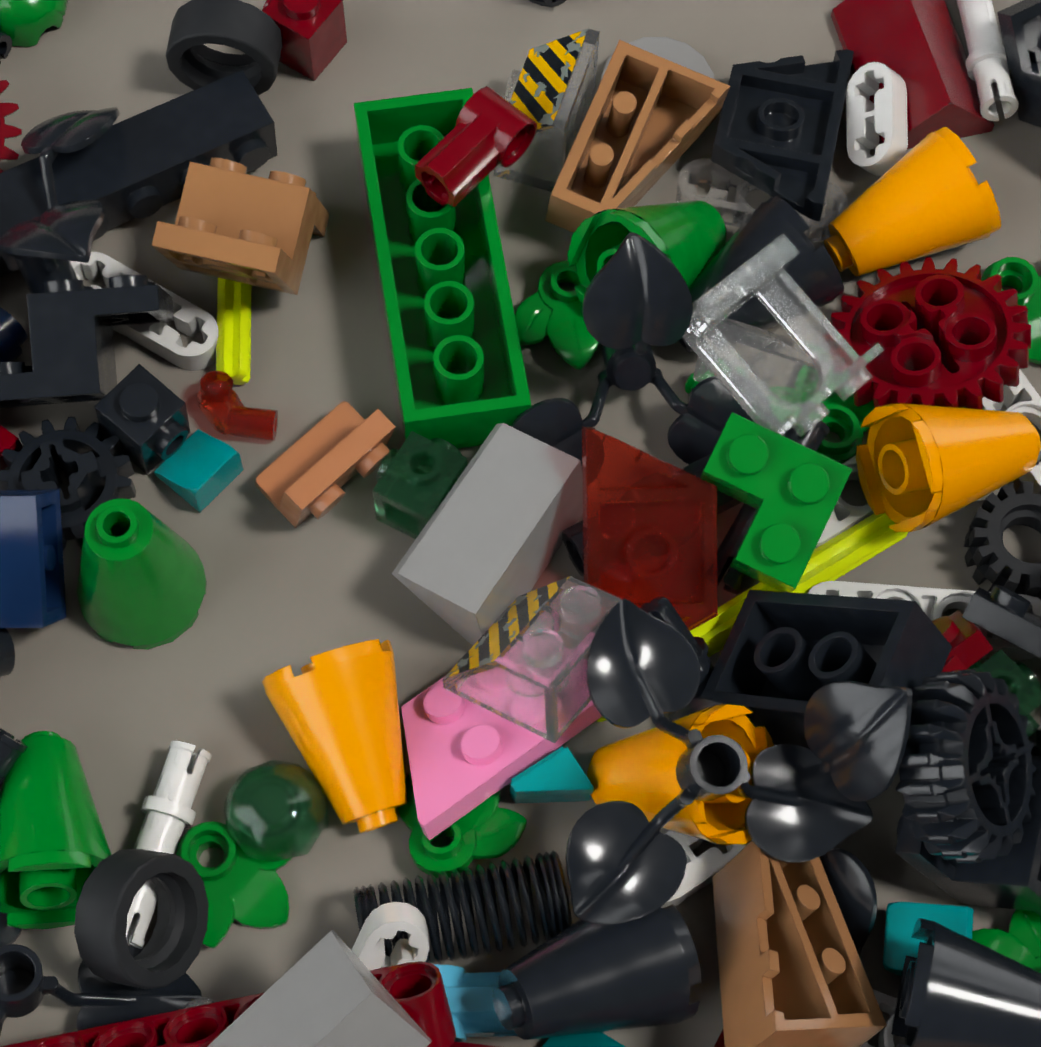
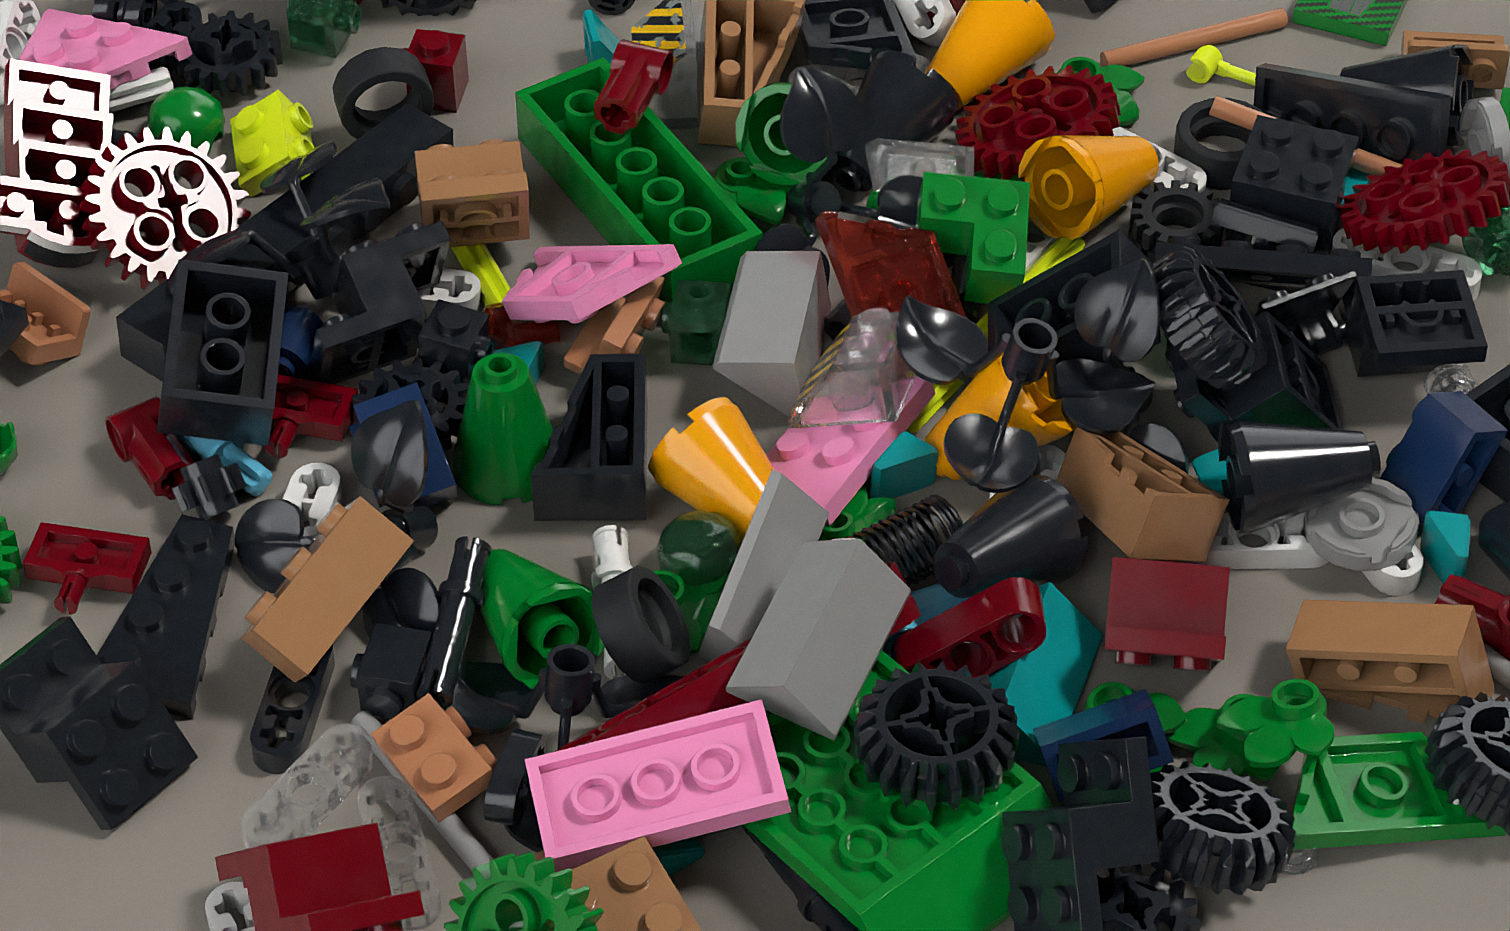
camera: 20 degrees left, 20 degrees down
(96, 62) = (268, 137): none -> neon yellow bracket
(231, 623) = (600, 447): none -> black wedge
(308, 393) = (582, 279): none -> bright pink wing
(315, 894) = (775, 534): none -> light grey slope
(500, 51) = (597, 38): none -> teal slope
(836, 362) = (897, 99): clear panel -> none

